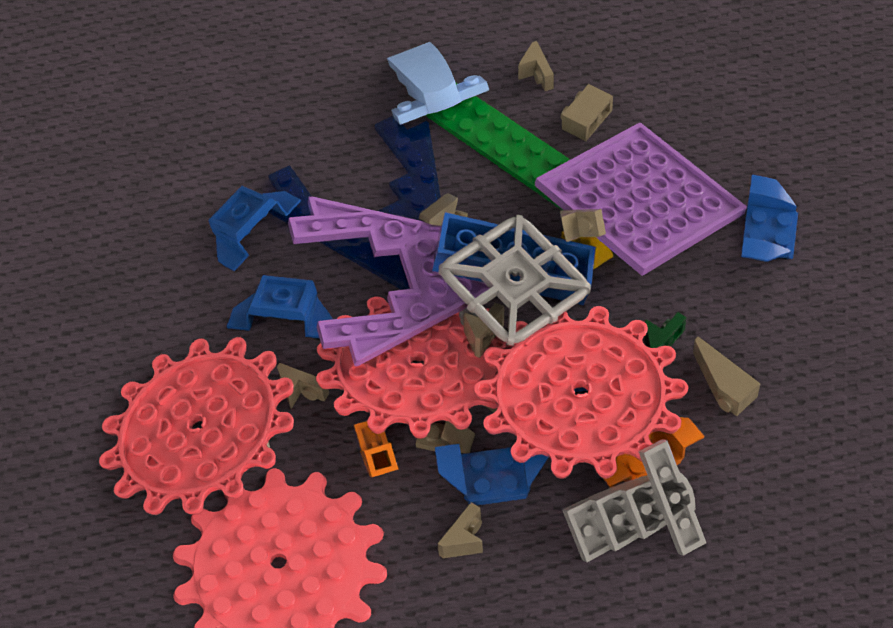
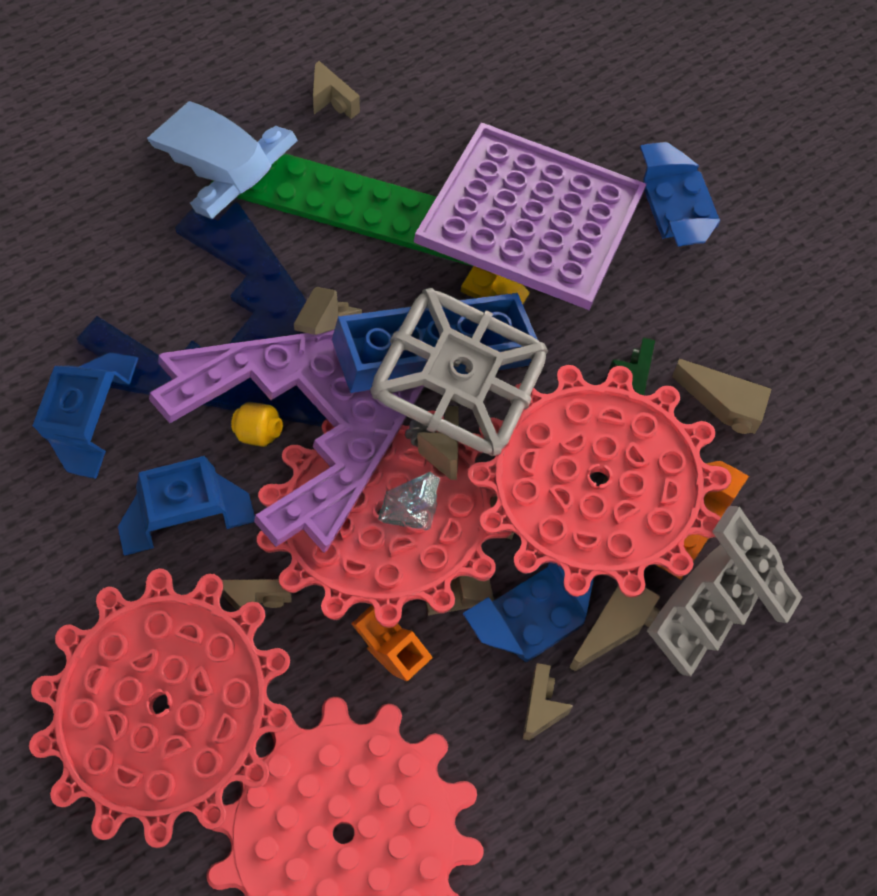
camera: 35 degrees left, 10 degrees up
(360, 273) = (256, 424): none -> yellow head
(435, 359) = (411, 503): none -> clear light blue slope
(544, 502) = (617, 623): none -> dark tan slope
(582, 223) = (495, 271): dark tan slope -> none
(586, 112) = (416, 129): dark tan brick -> none

